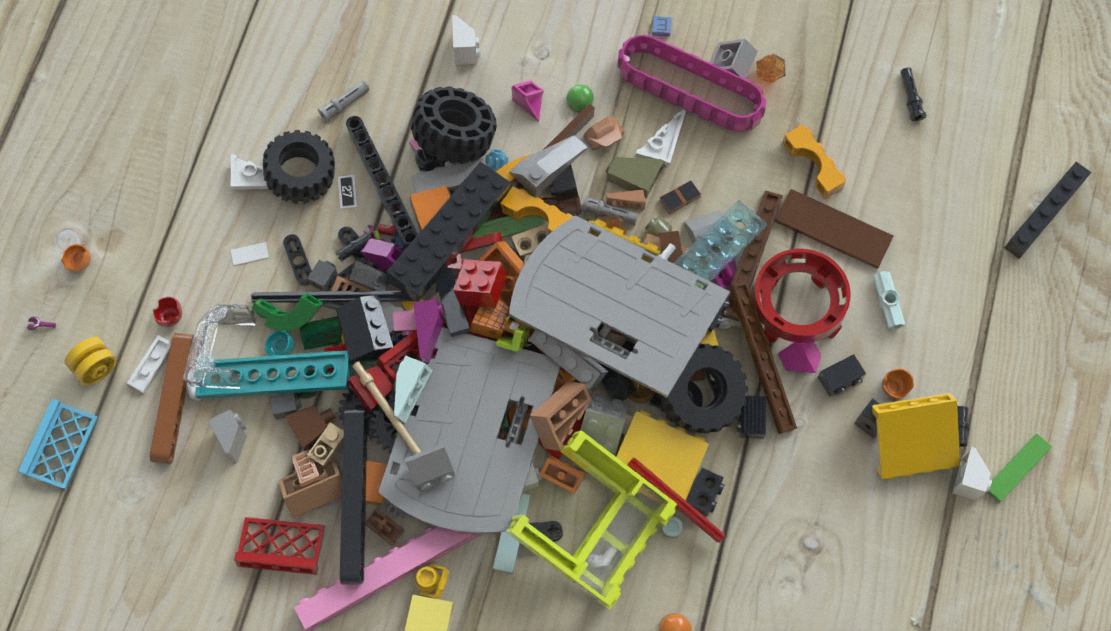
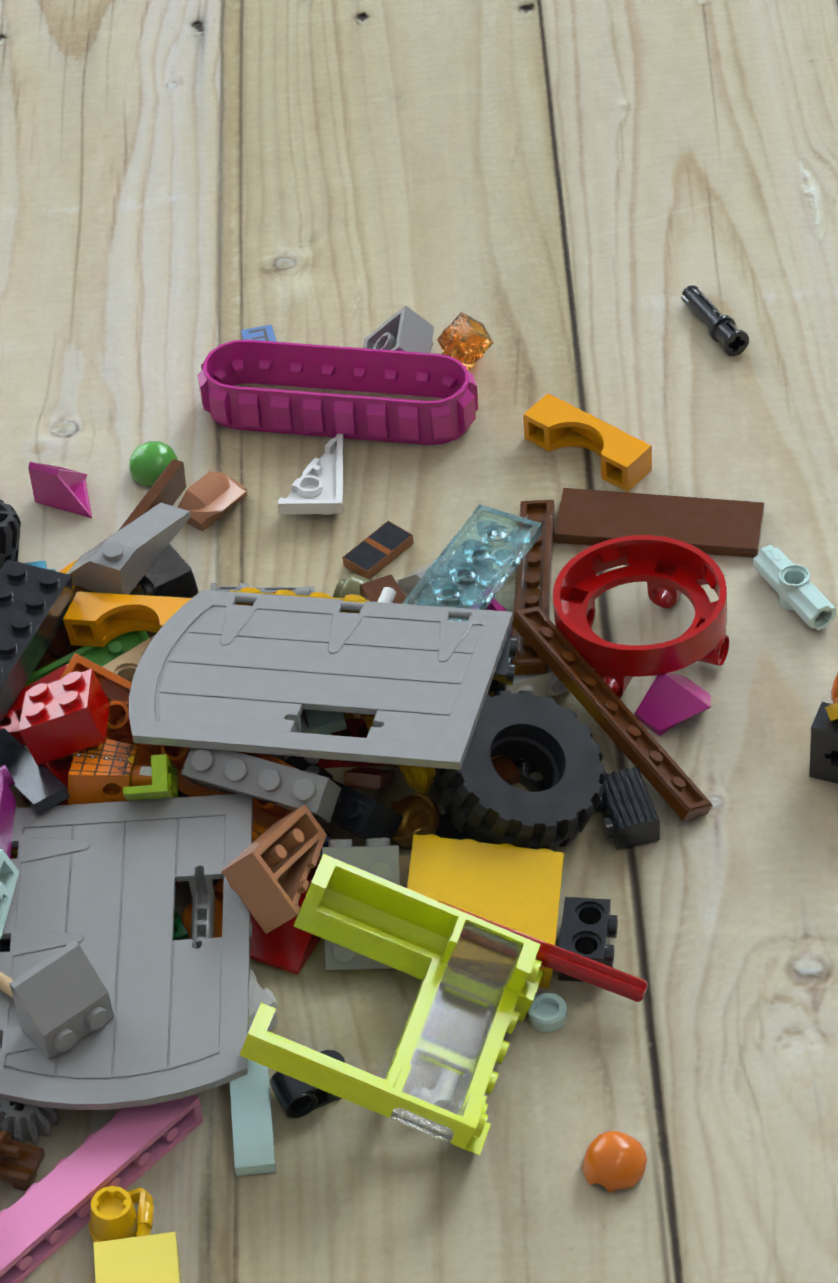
camera: 15 degrees left, 25 degrees down
(562, 474) = (314, 981): orange brick -> none
(627, 199) = (295, 570): nougat slope -> none
(635, 173) = (286, 536): olive slope -> none
(842, 375) = (758, 708): black brick -> none

